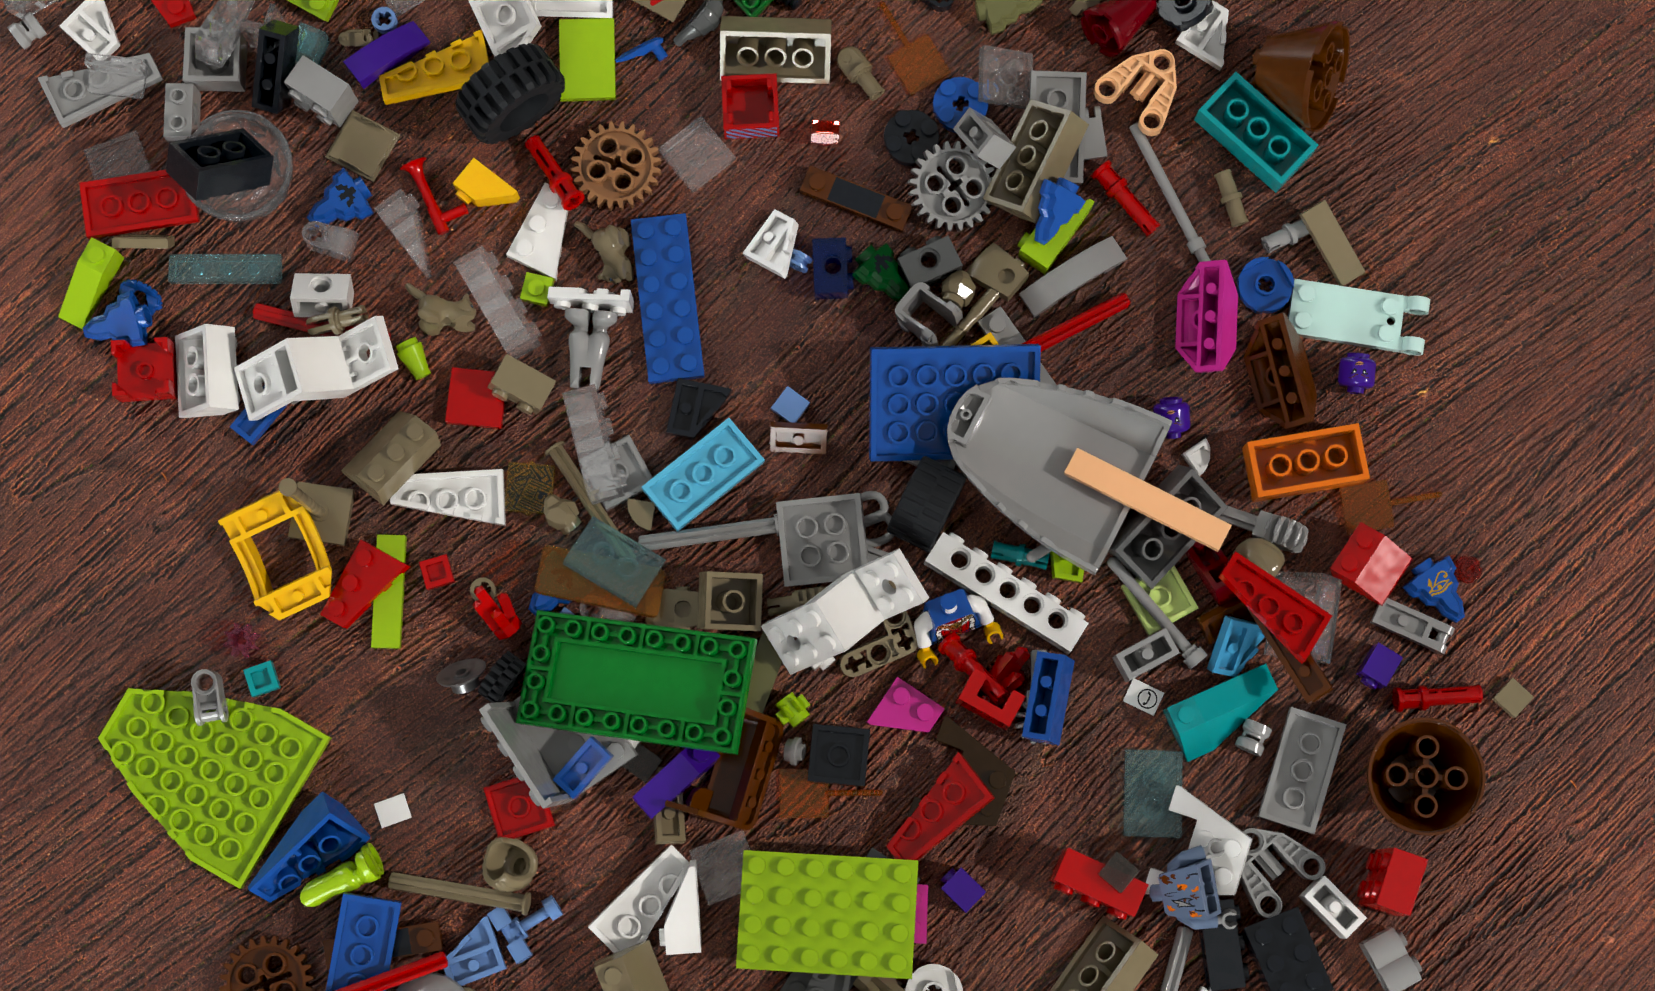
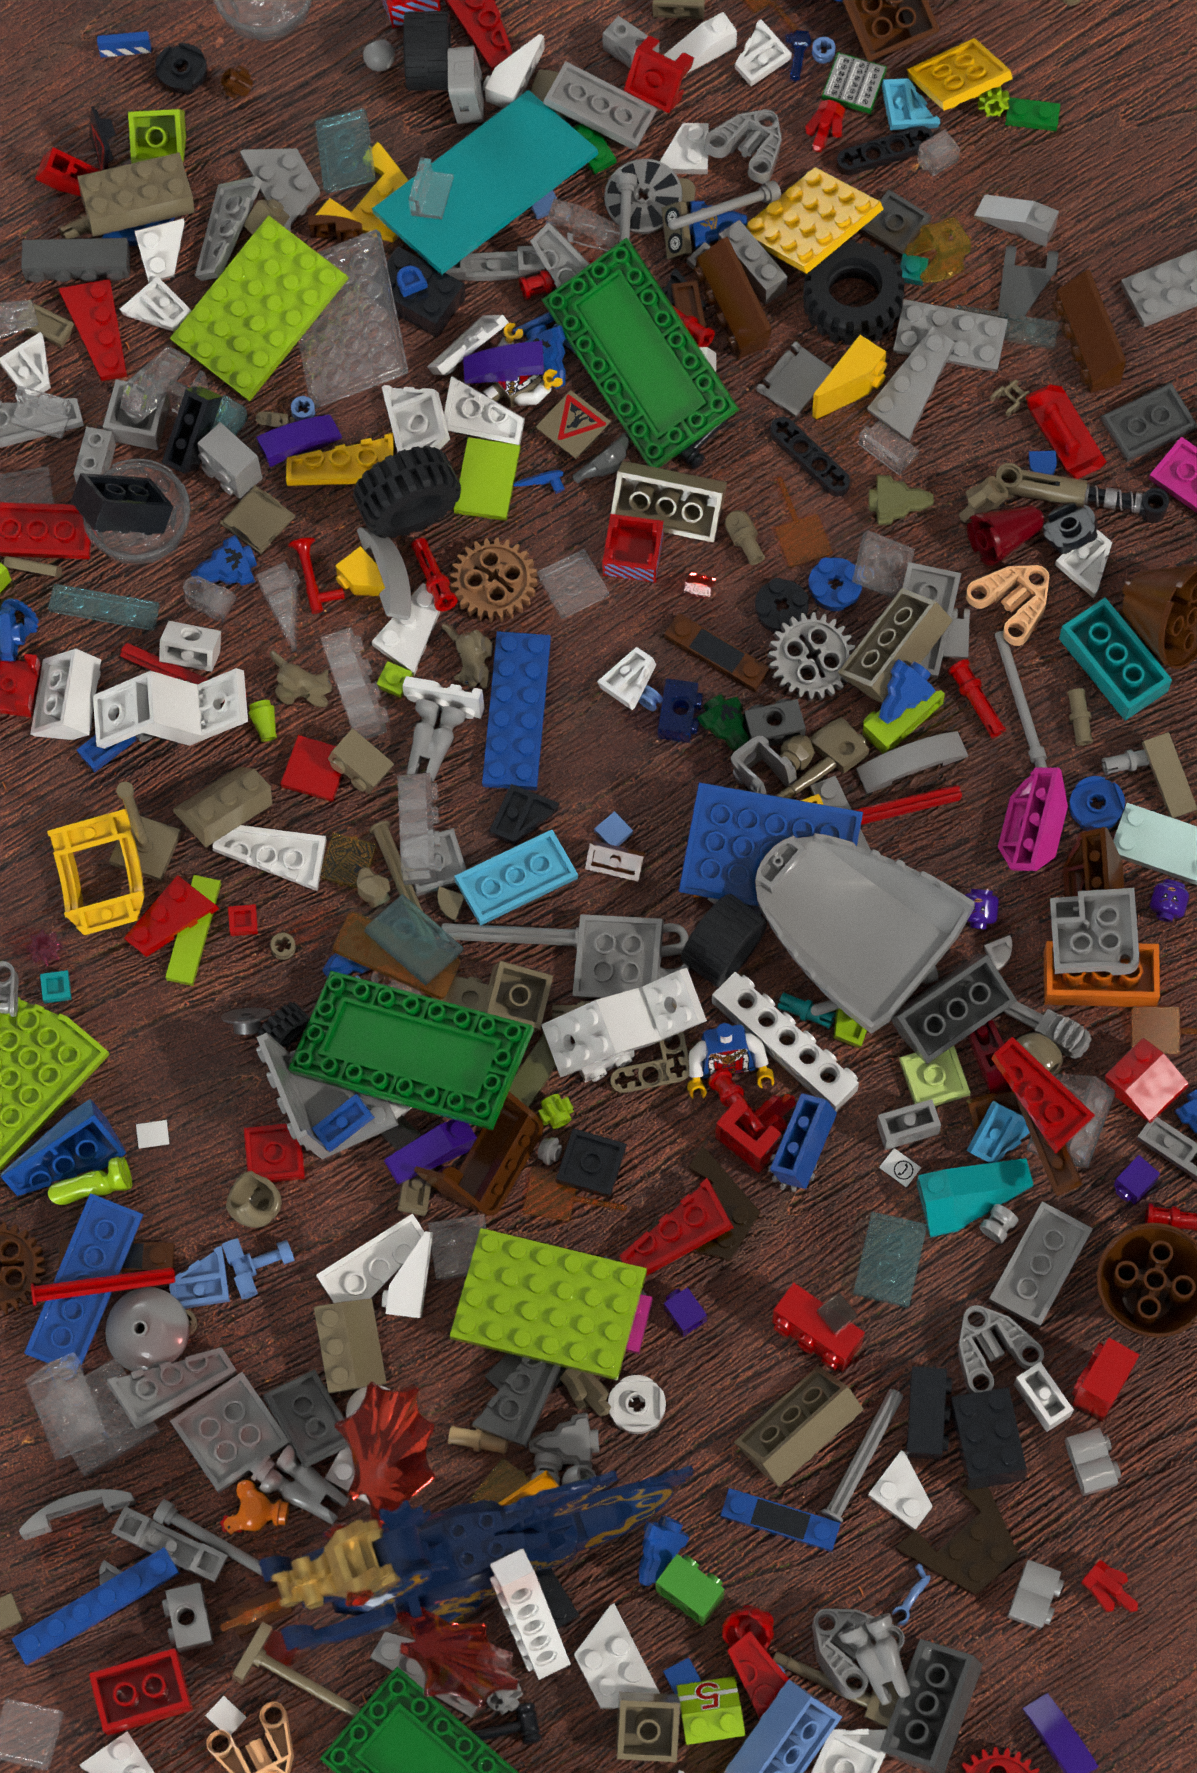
camera: 15 degrees right, 10 degrees down
(337, 320) = (198, 669): dark tan arm -> none
(460, 892) = (201, 1219): dark tan axle -> none
(501, 620) = (293, 972): red rock -> none
(522, 202) = (397, 593): none -> light grey slope
(906, 709) = (666, 1133): dark pink wing -> none
(984, 138) = (850, 615): light grey brick -> none
(1148, 499) = (938, 975): light nougat tile -> none
(1191, 653) = (954, 1133): light grey piece -> none
(1191, 890) = (905, 1347): sand blue torso -> none
(1211, 825) = (935, 1326): white wing -> none
(1294, 425) = (1095, 932): none -> light grey slope

